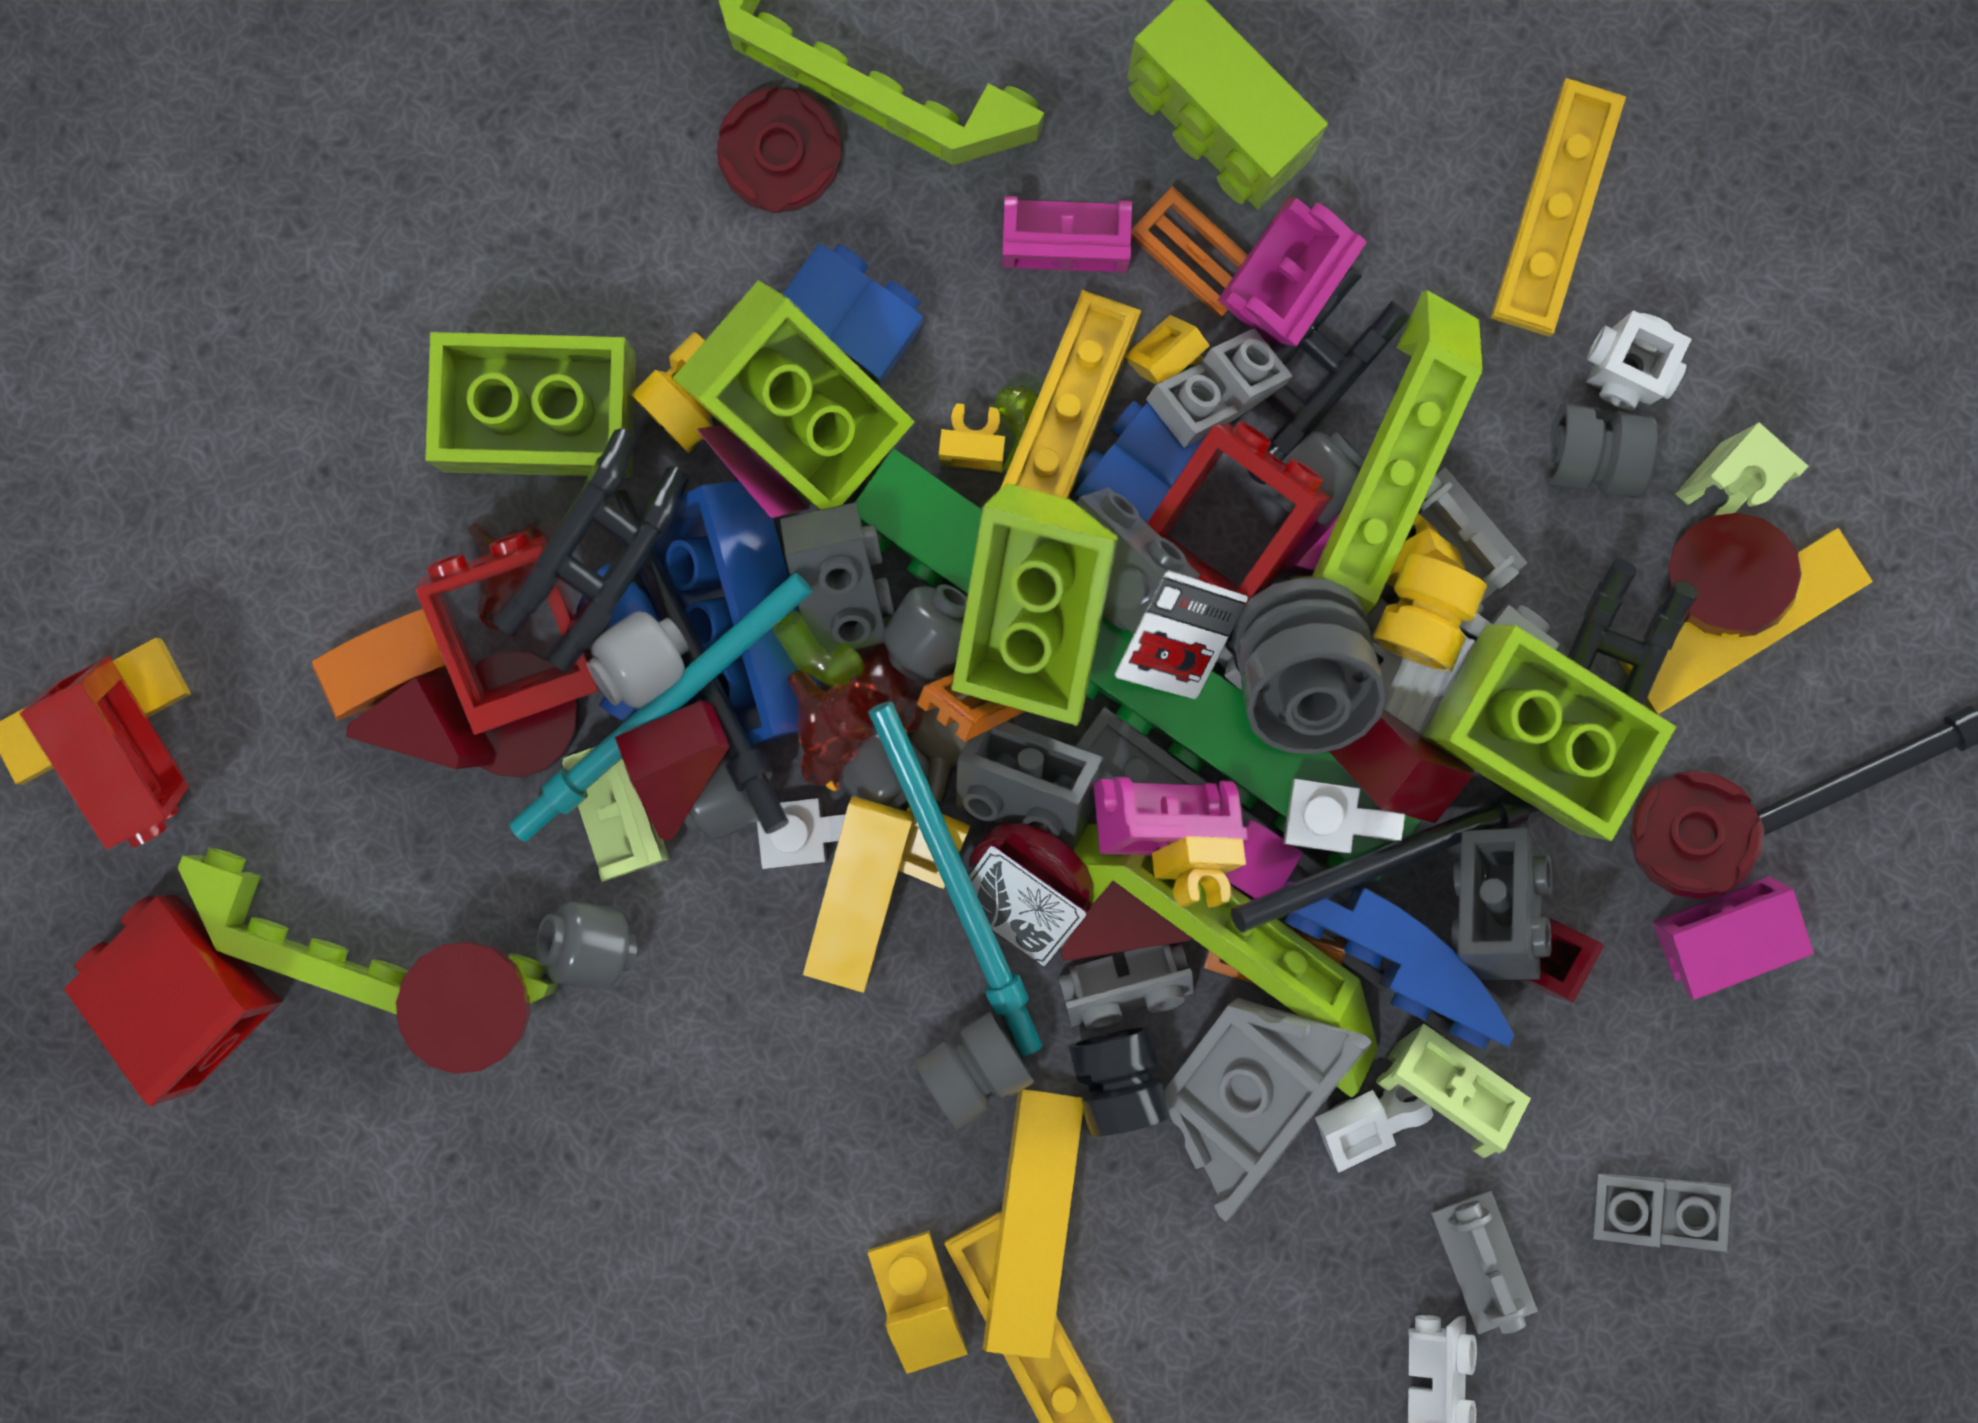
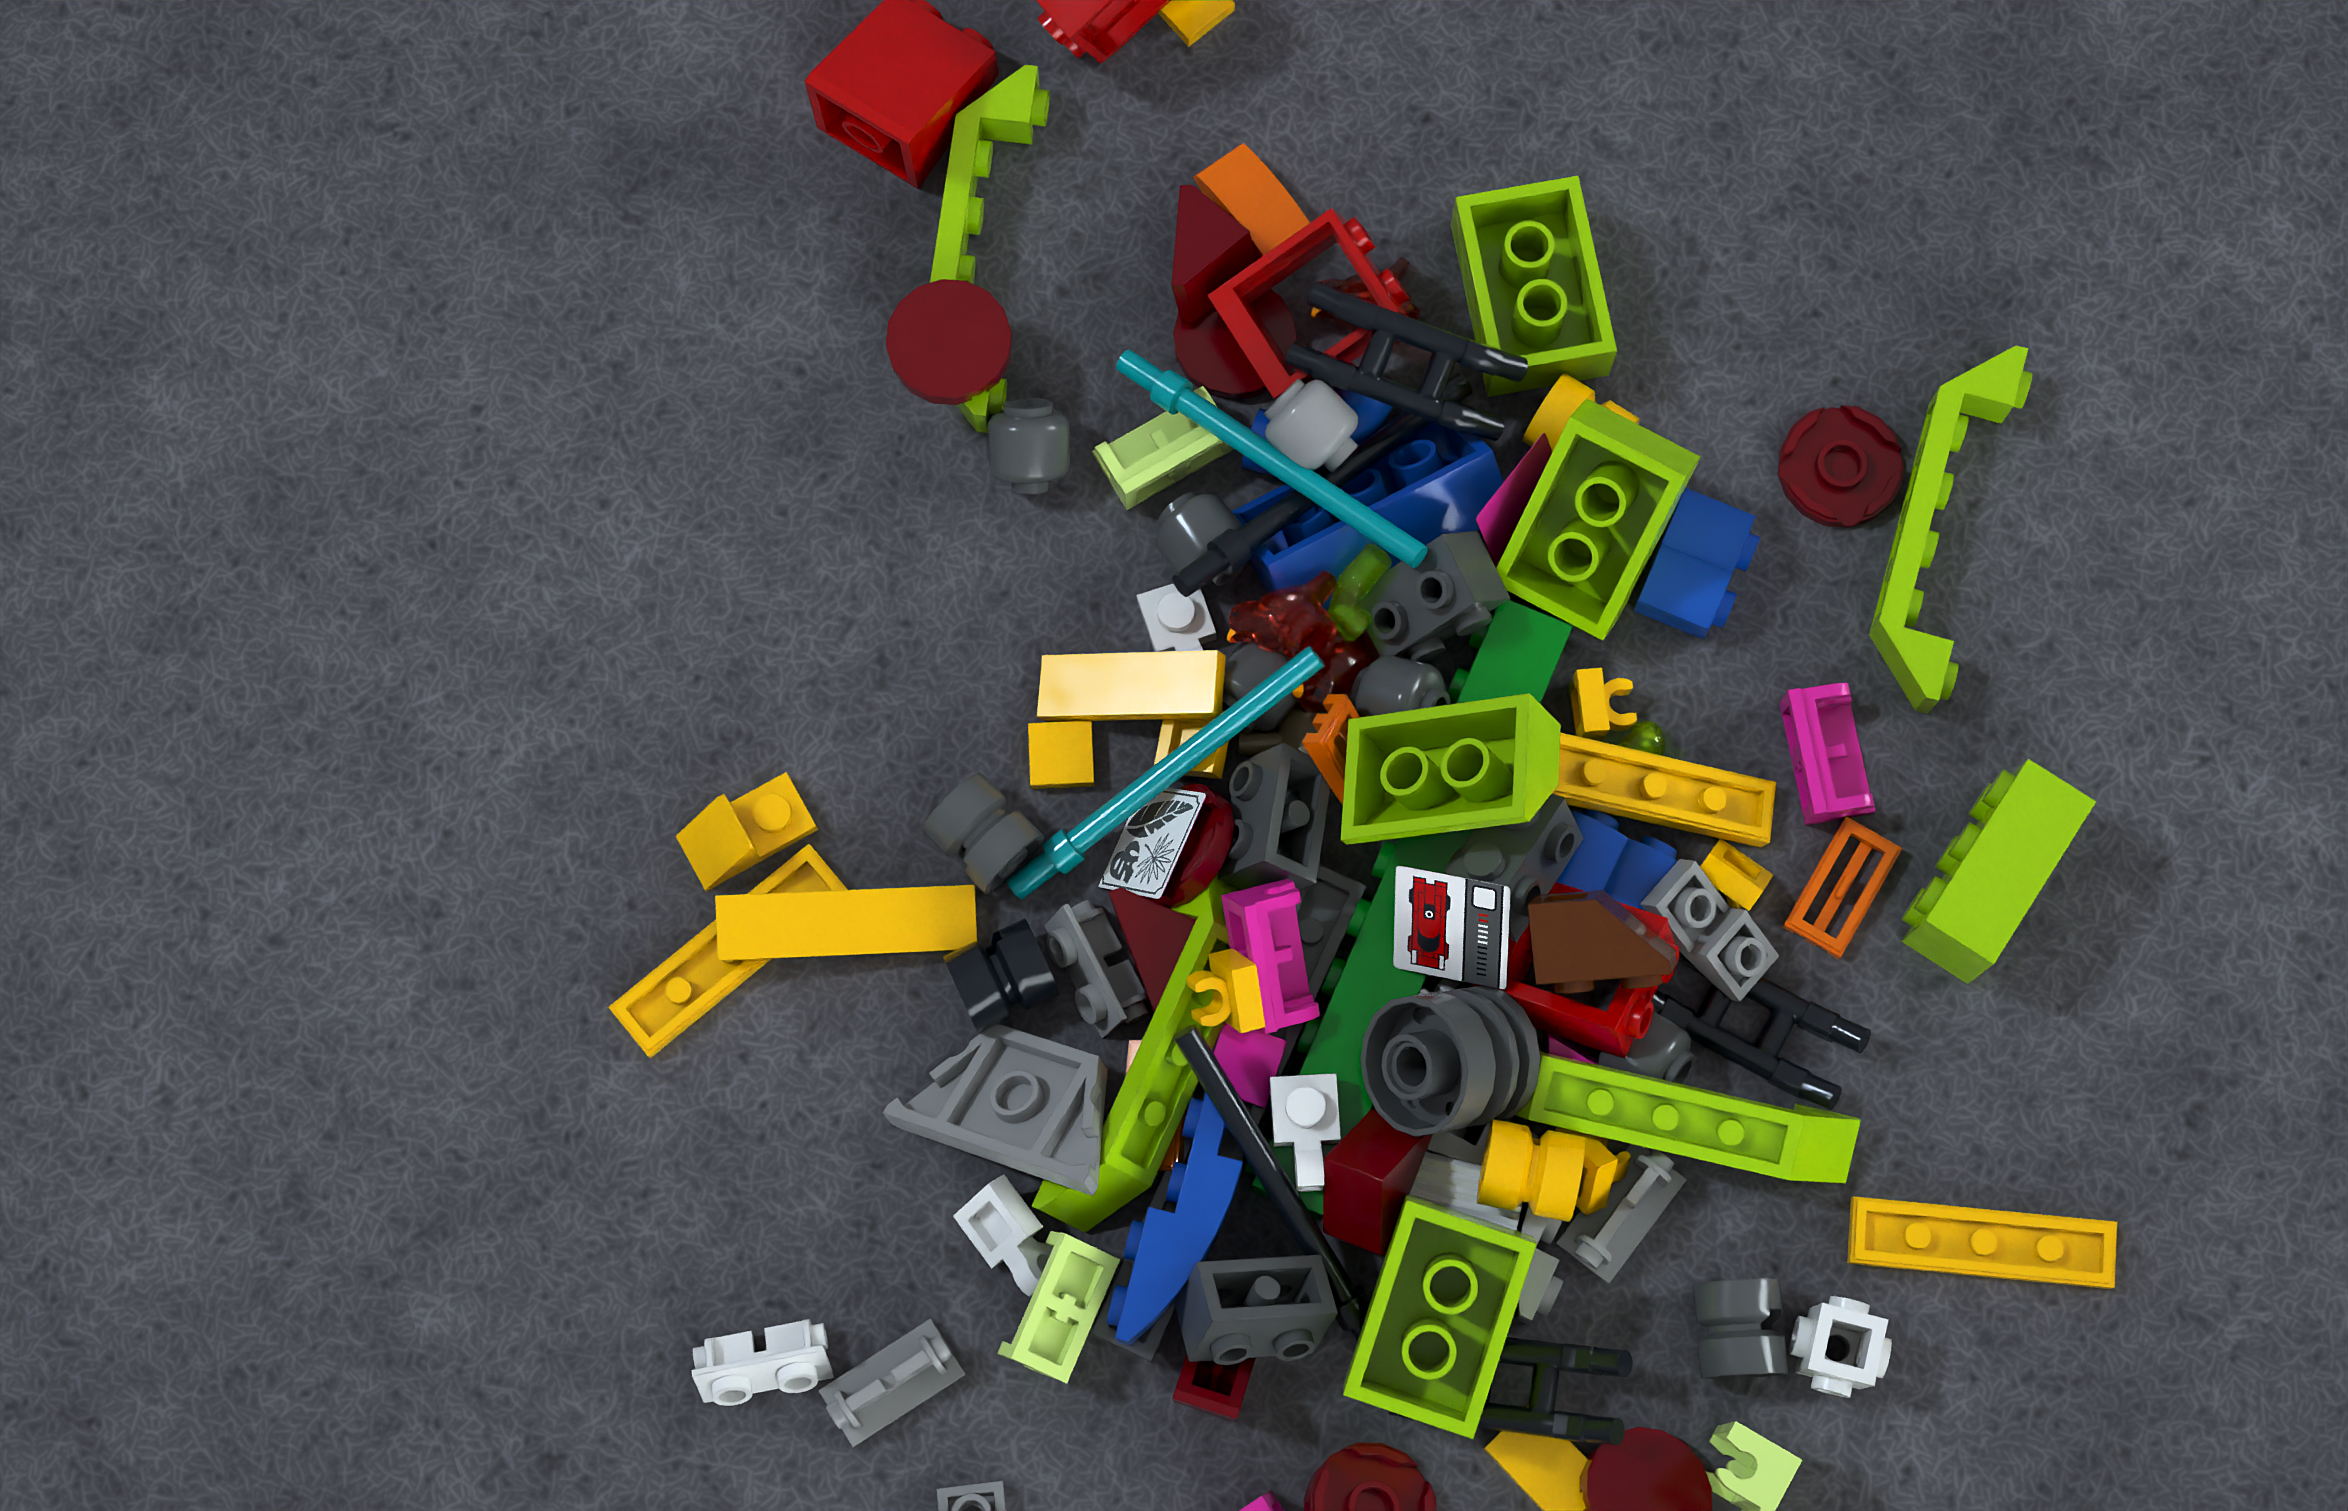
camera: 80 degrees right, 10 degrees down
(673, 762) = (1219, 476): dark red slope -> none
(906, 976) = (1061, 754): none -> yellow tile
(1232, 500) = (1591, 939): none -> reddish brown slope
(1292, 271) = (1844, 978): dark pink hinge -> none

